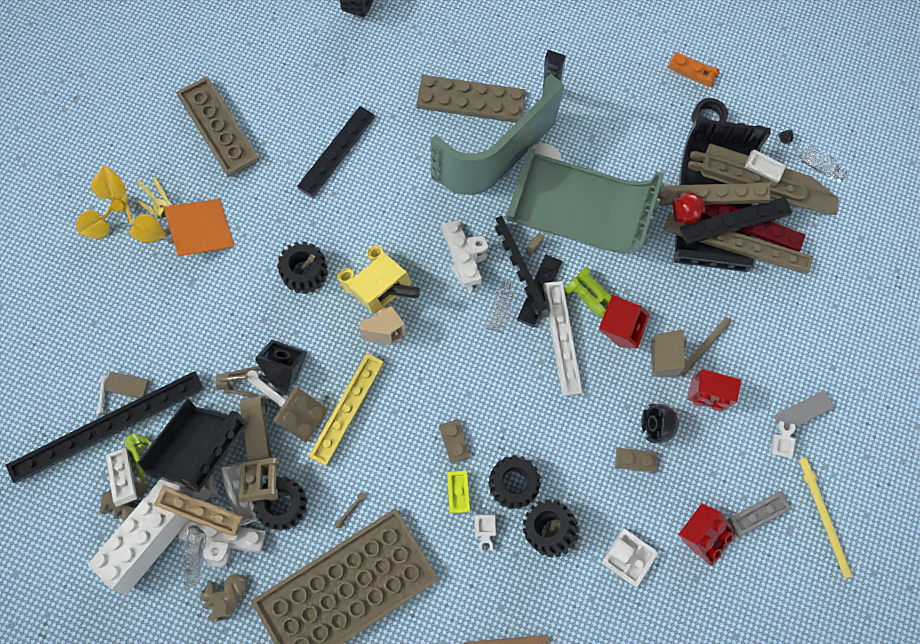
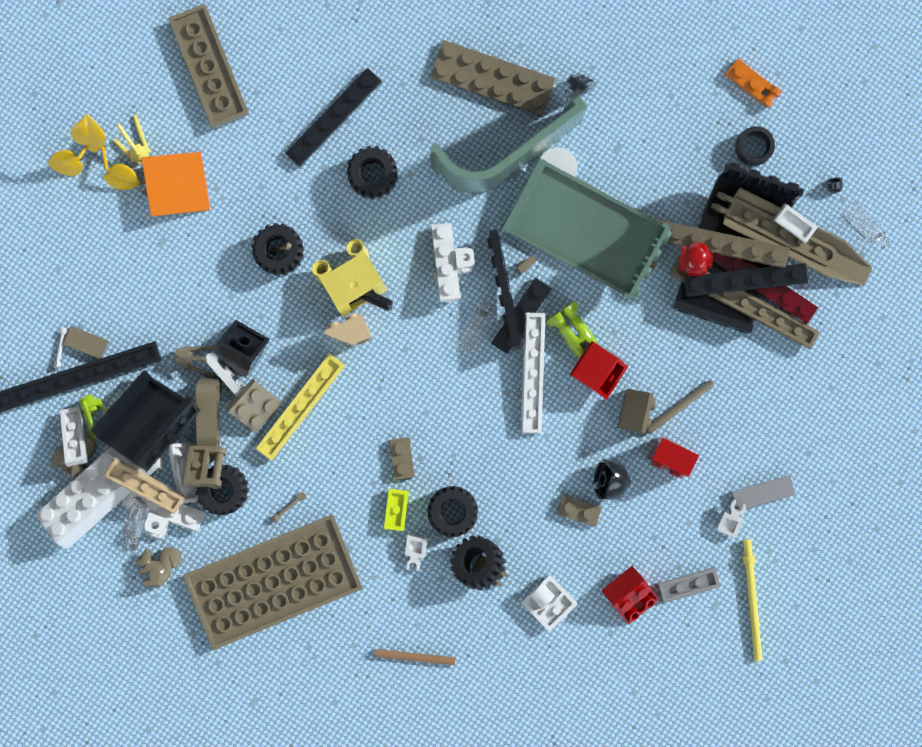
camera: 15 degrees right, 15 degrees up
(374, 175) = (372, 155): none -> black tyre

